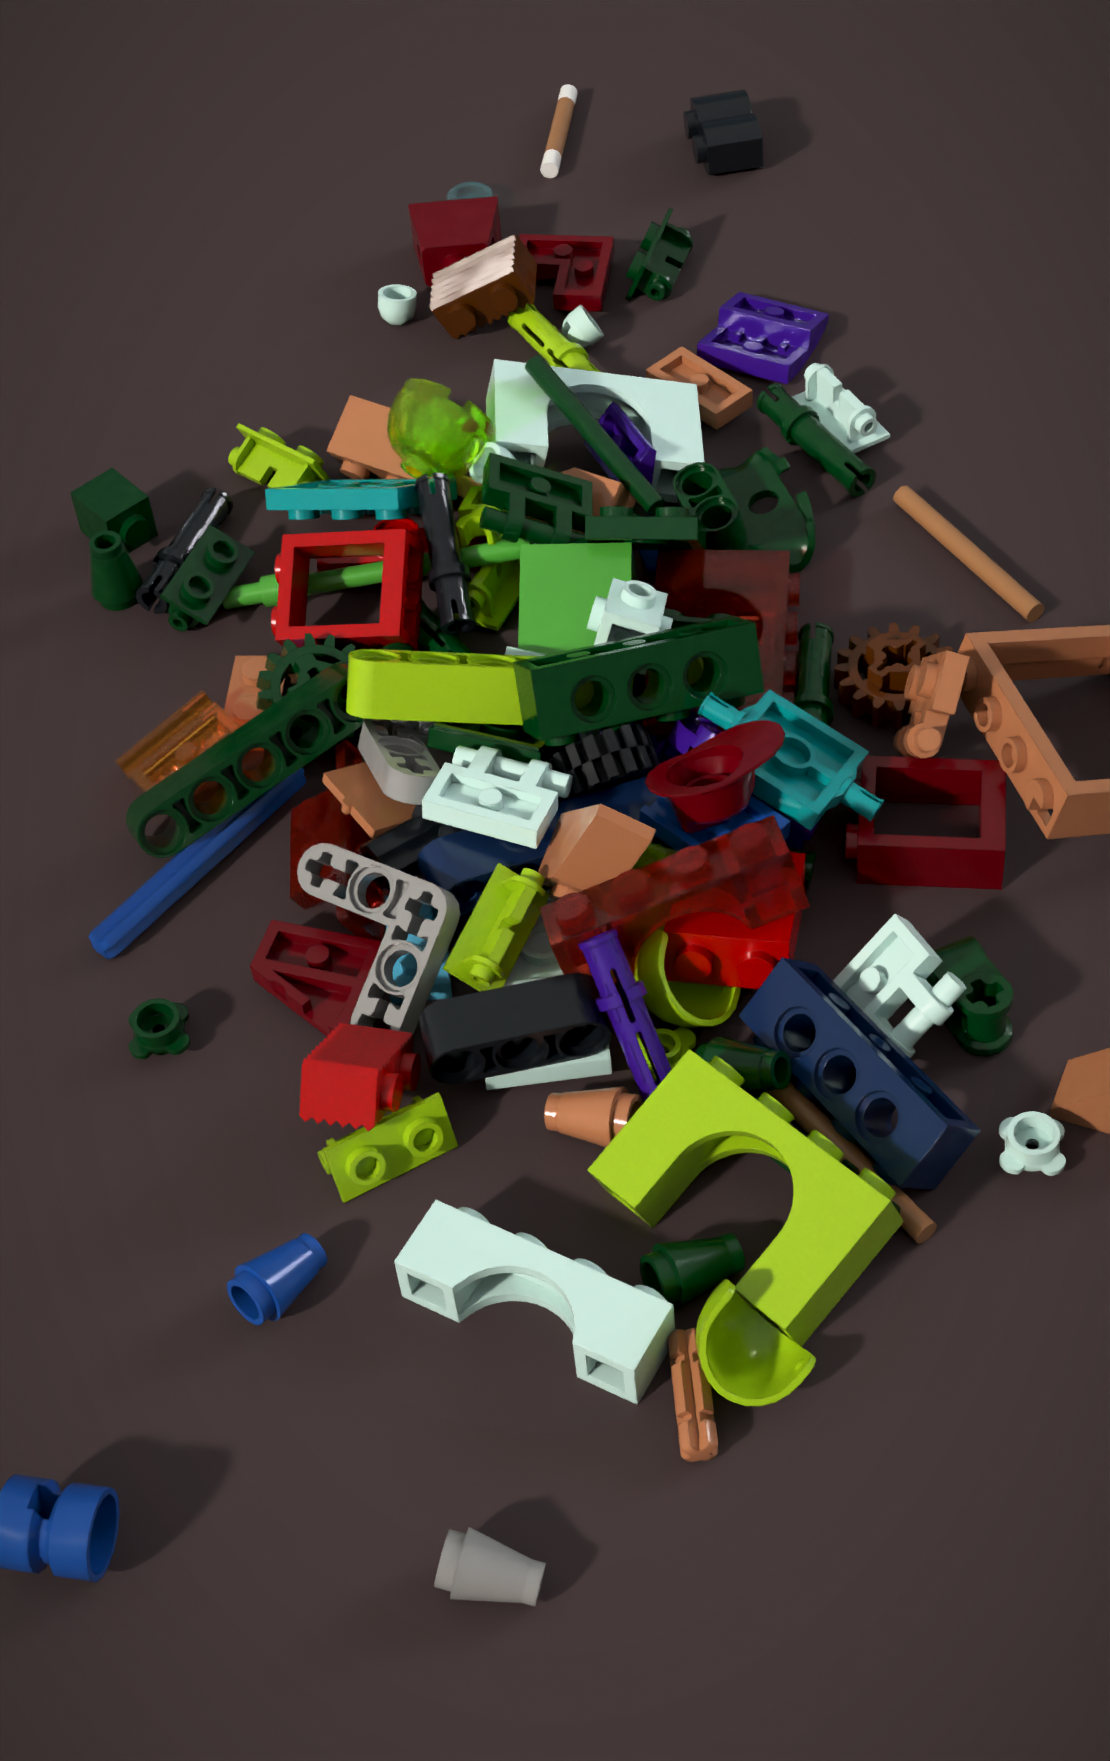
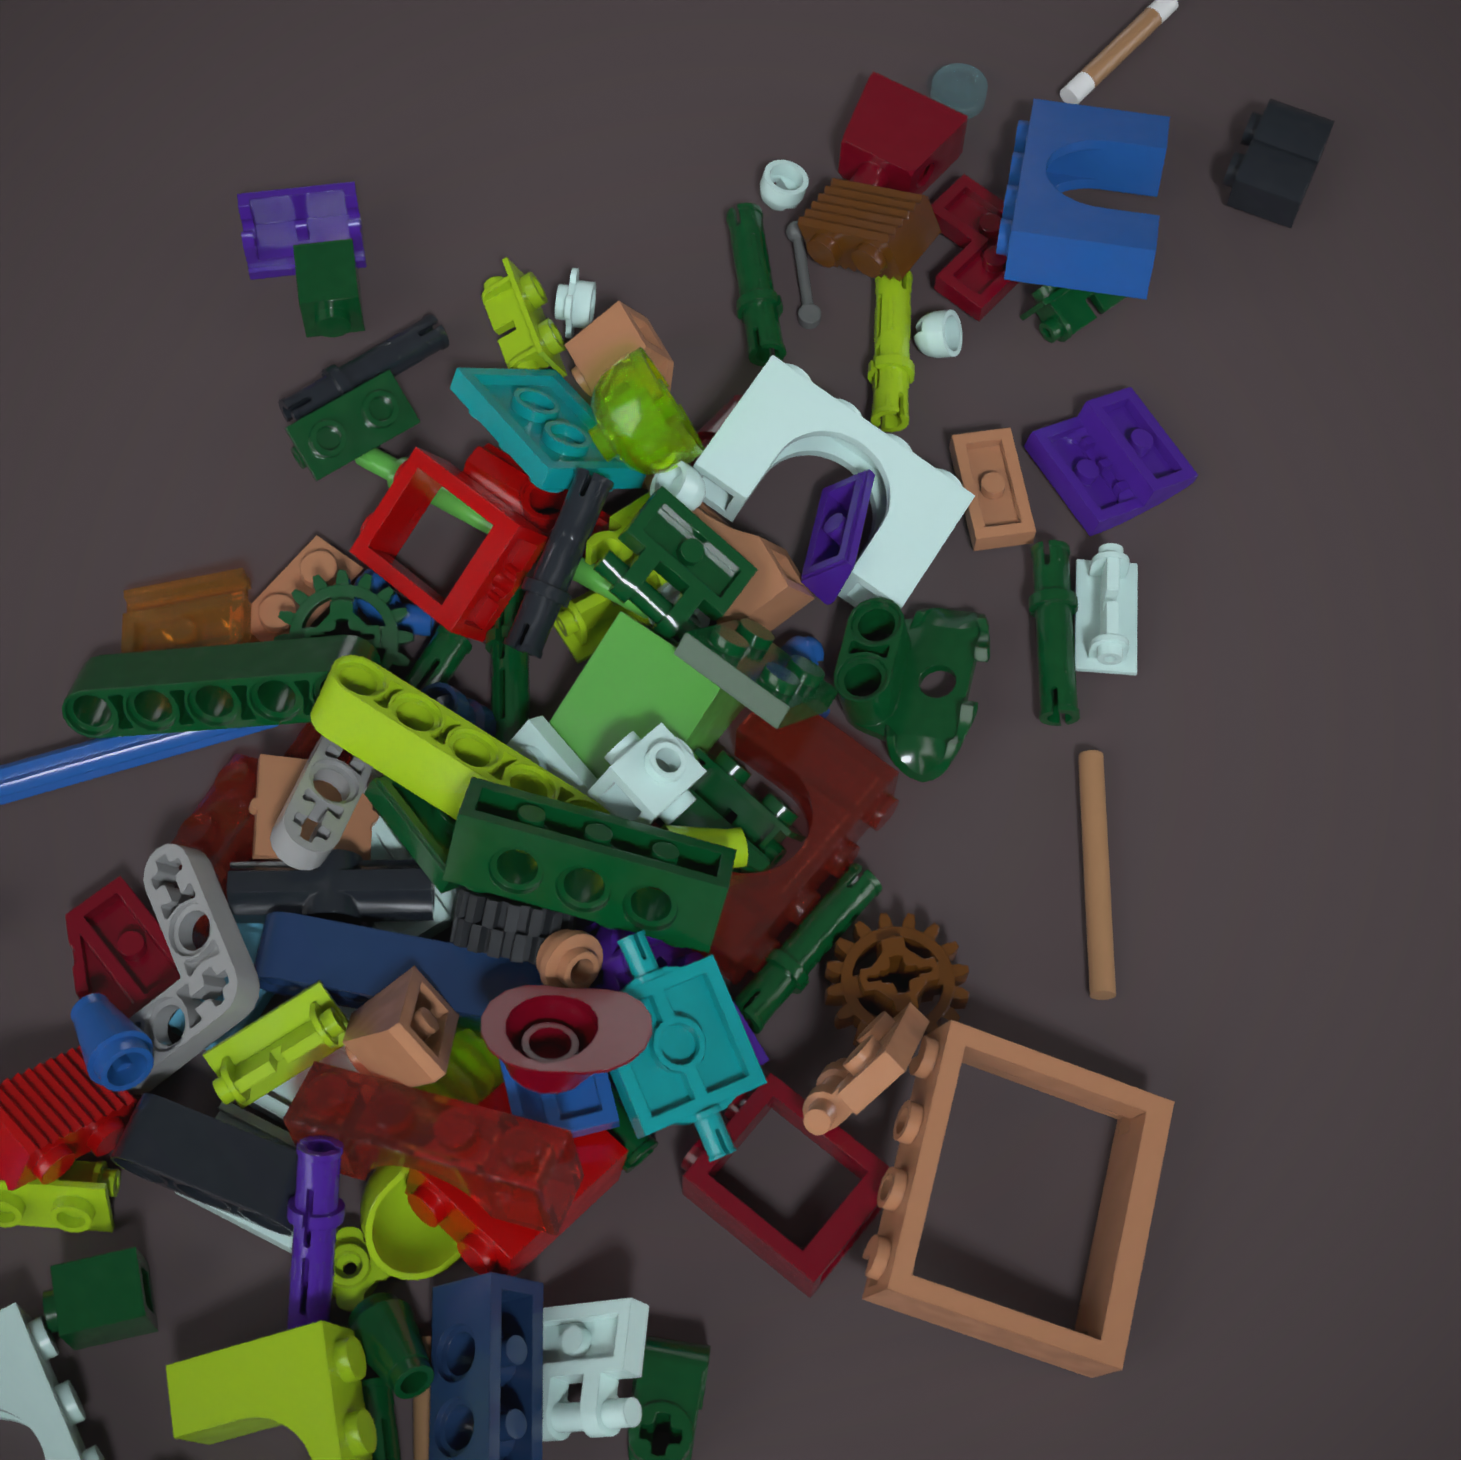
camera: 25 degrees right, 15 degrees up
(41, 494) = (297, 216): none -> dark purple hinge
(113, 572) = (274, 363): dark green cone -> none
(308, 430) = (575, 303): none -> light aqua plate
(368, 1000) = (111, 1044): none -> blue cone
(427, 362) = (758, 301): none -> dark green pin
(478, 366) = (809, 314): none -> dark grey hinge
(496, 795) = (355, 915): light aqua plate -> none
(496, 1172) = (101, 1299): none -> dark green brick
(591, 1114) = (238, 1296): nougat cone -> none
(594, 434) = (807, 508): dark green bar -> none
(617, 198) = (1073, 243): none -> blue arch
(666, 743) = (569, 959): none -> nougat plate

